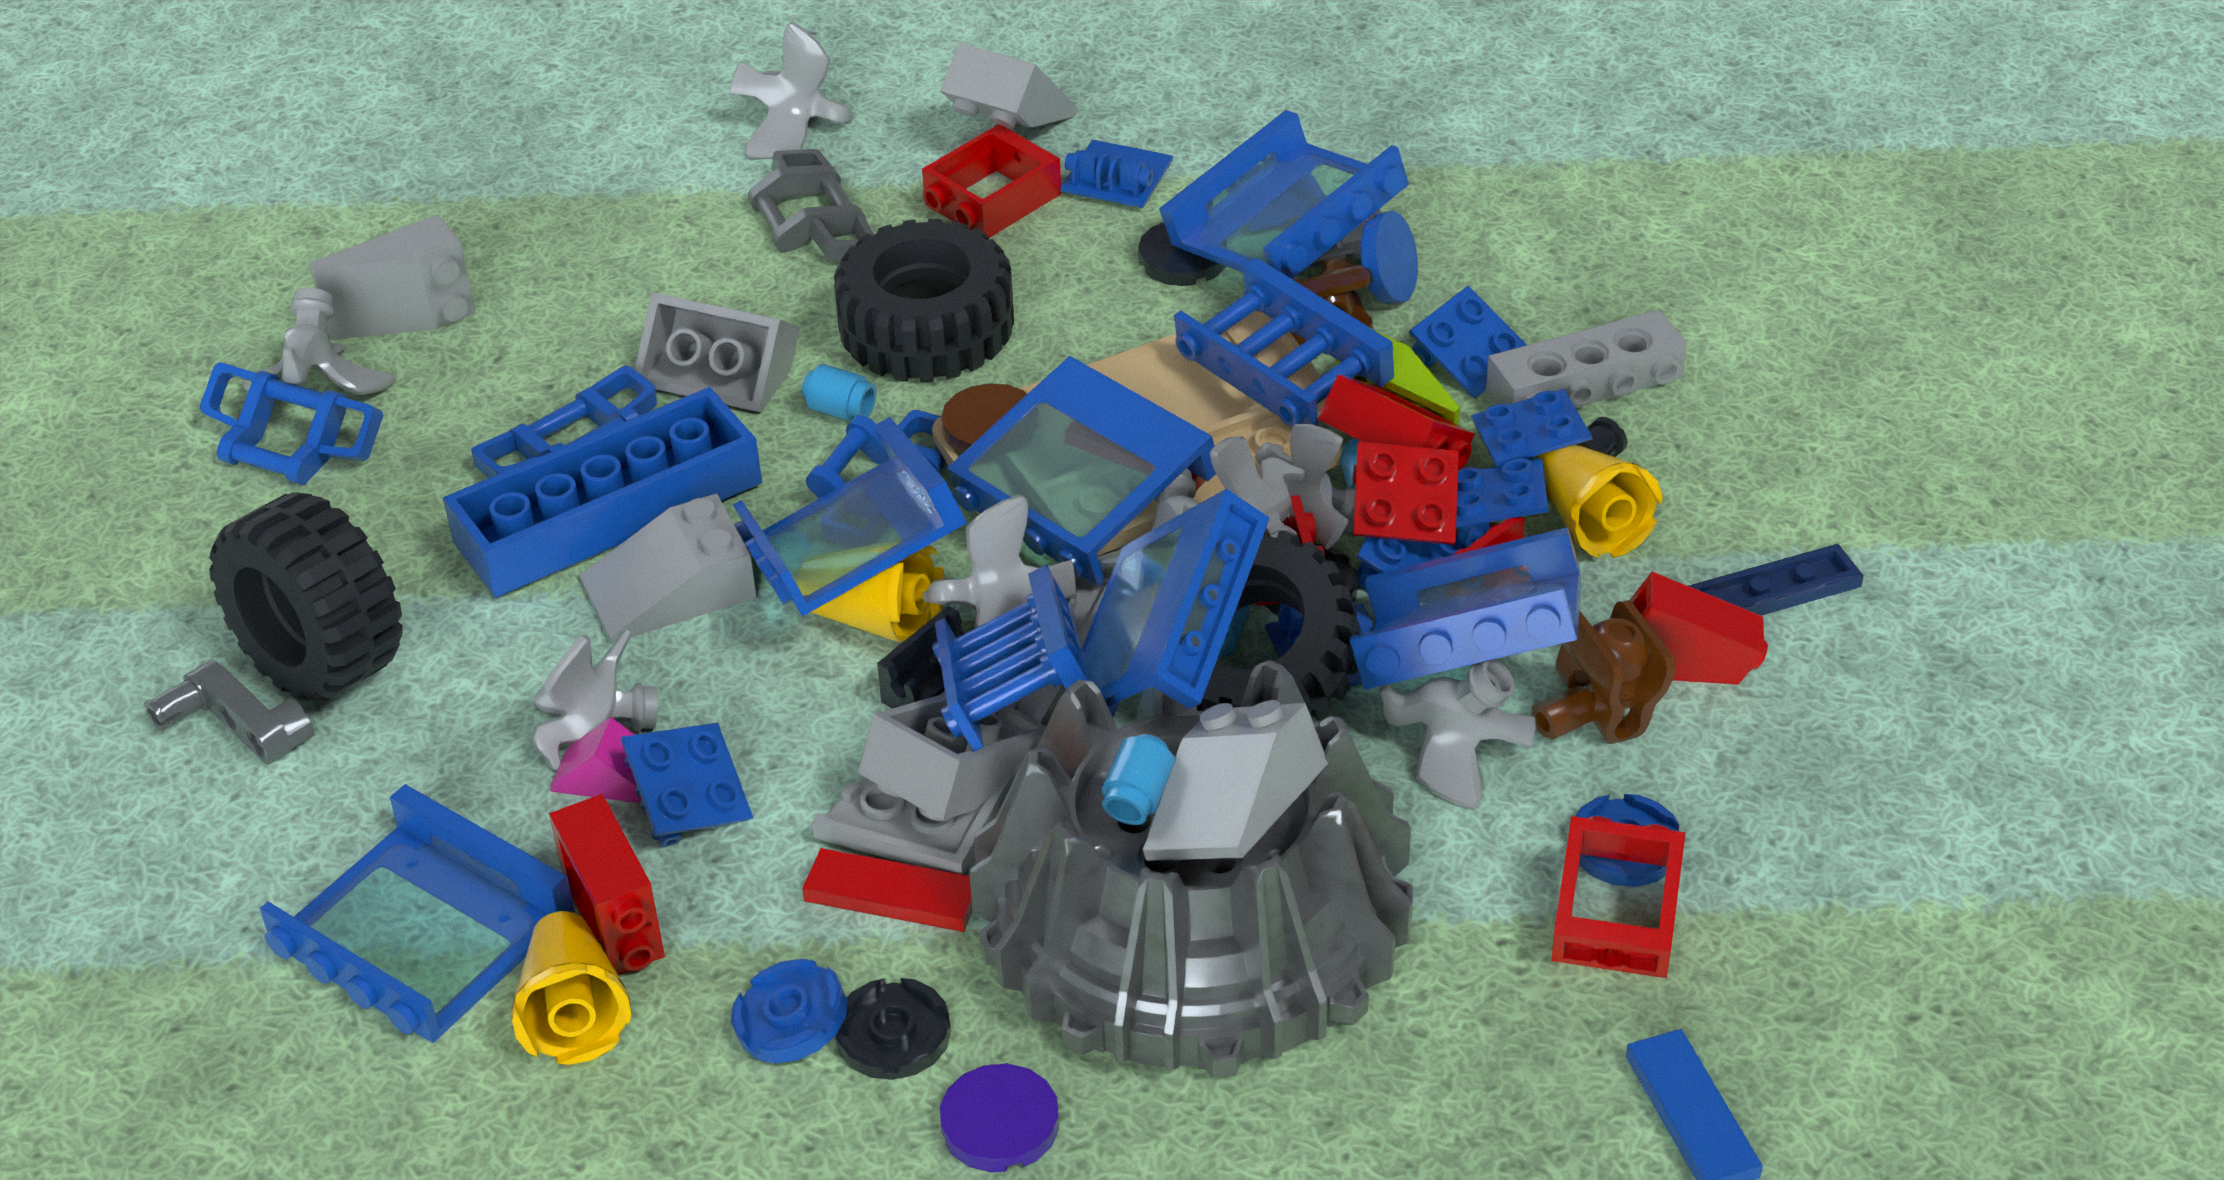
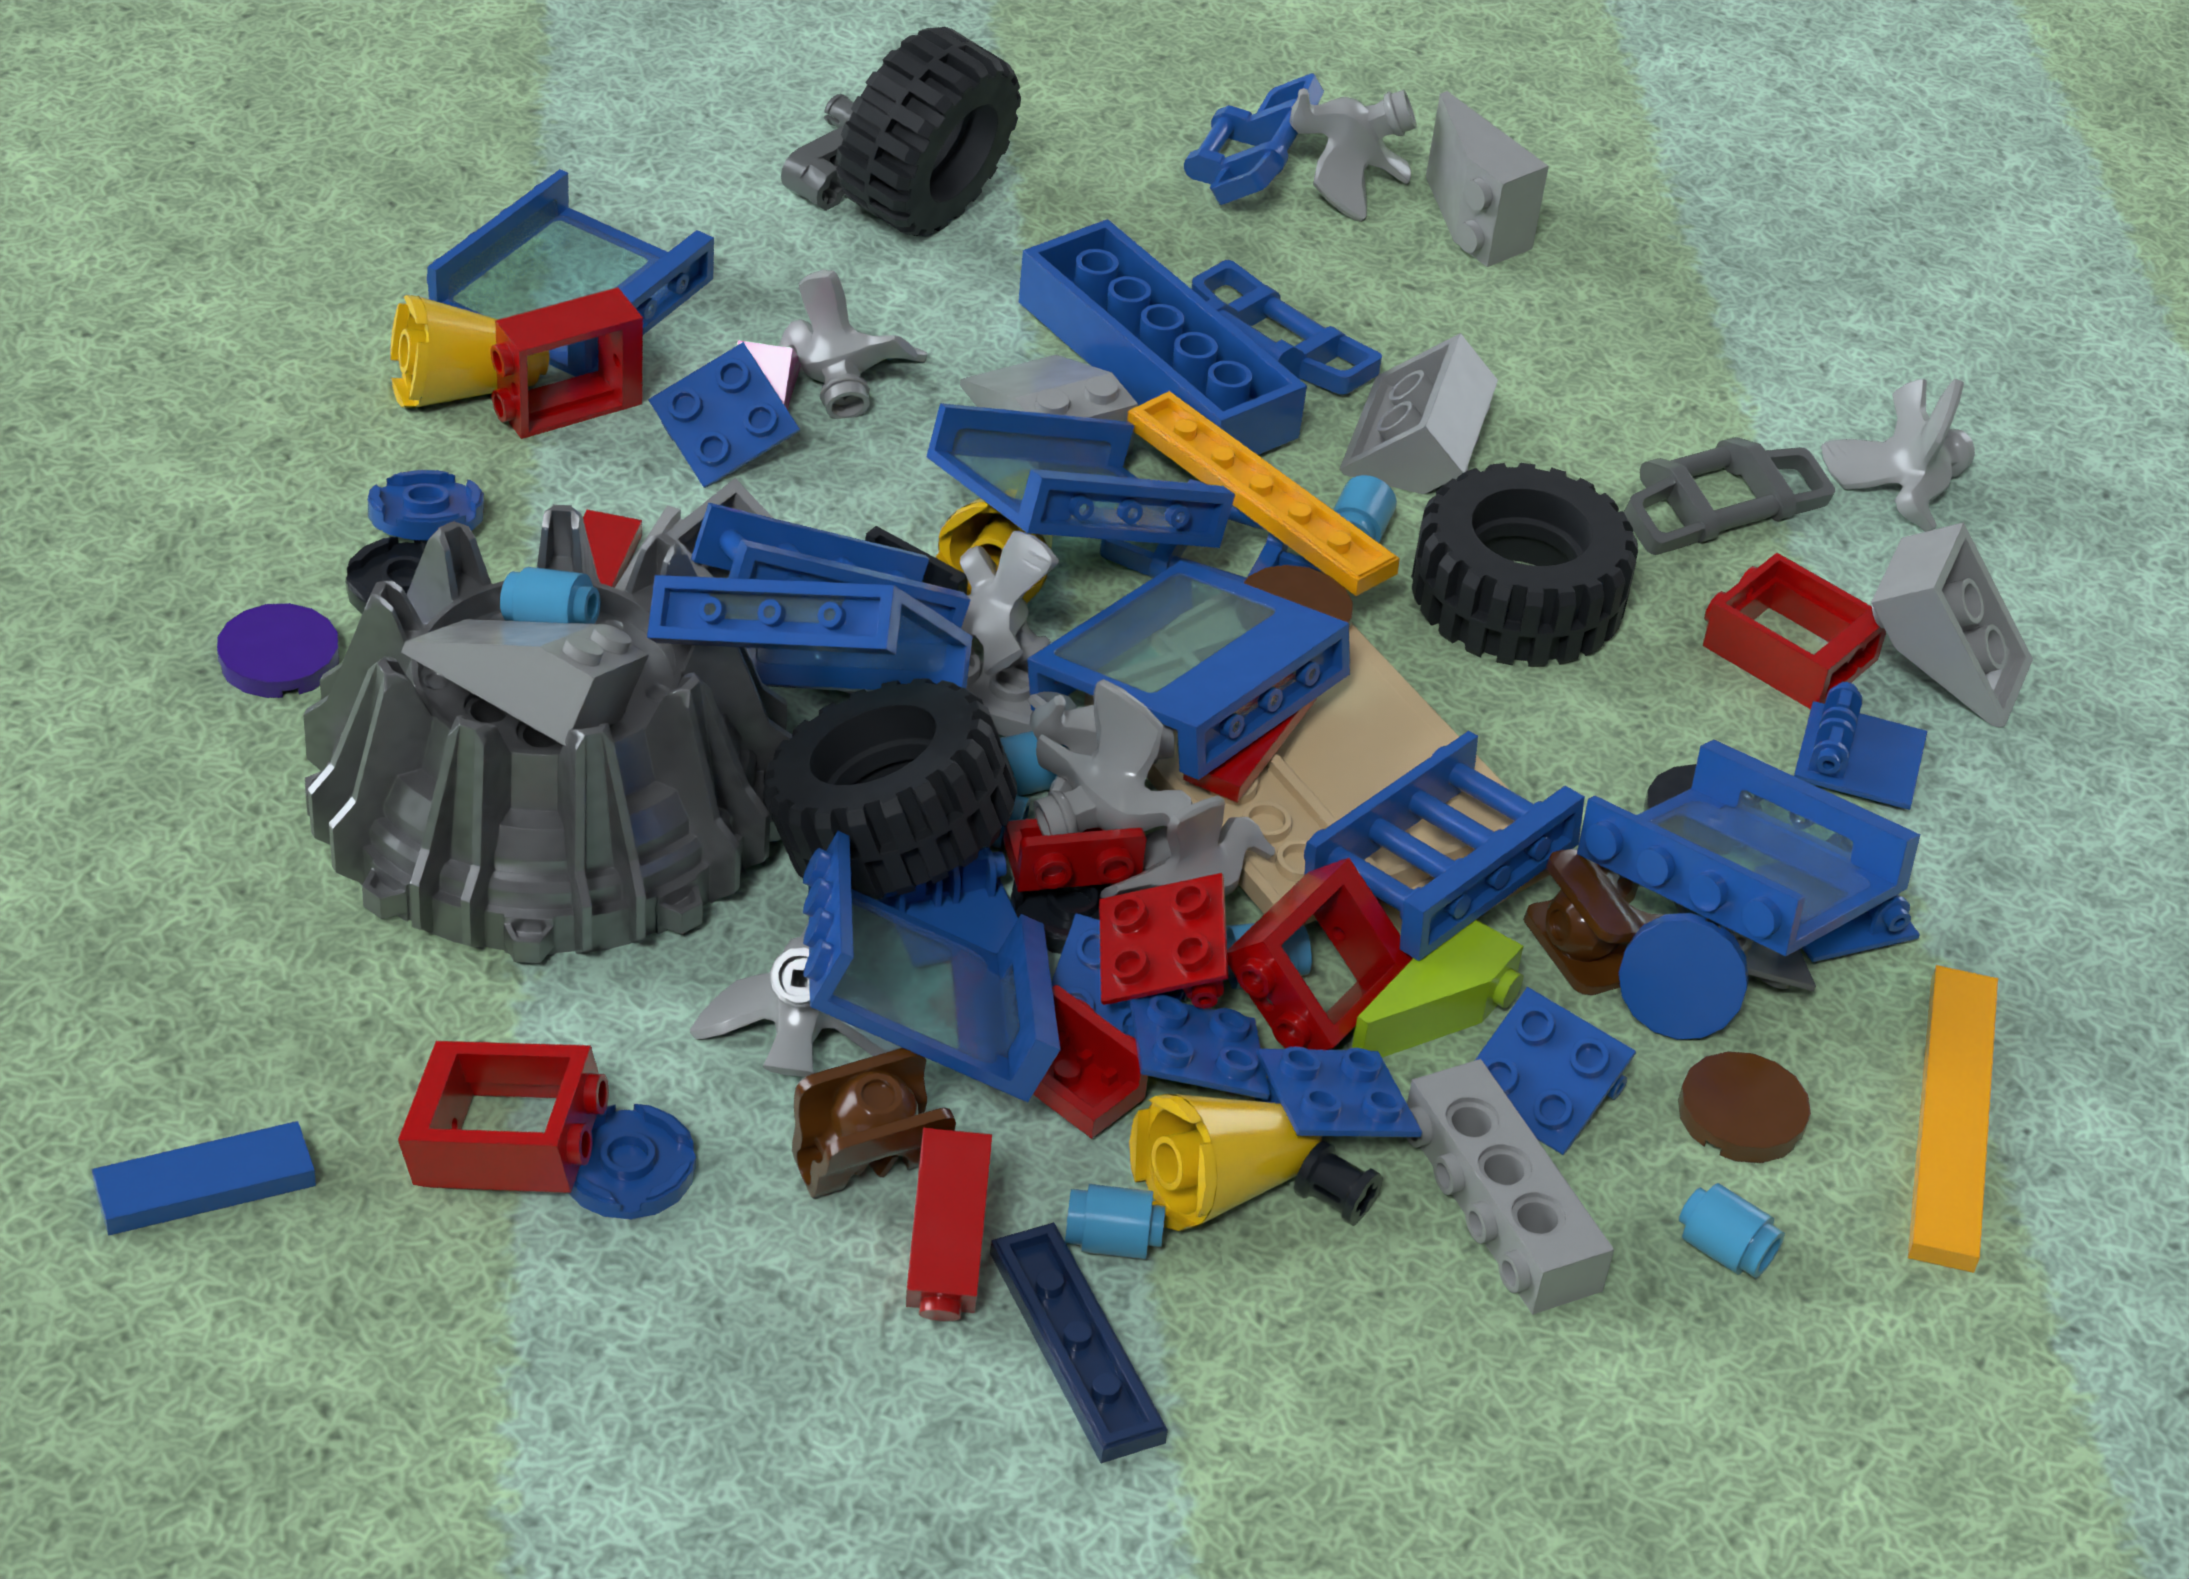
camera: 80 degrees right, 0 degrees up
(836, 429) = (1264, 493): none -> light orange tile
(1482, 260) = (1744, 1106): none -> reddish brown tile
(1491, 174) = (1954, 1120): none -> light orange tile
(1609, 271) = (1730, 1230): none -> dark azure brick
(1654, 549) = (1114, 1221): none -> dark azure brick

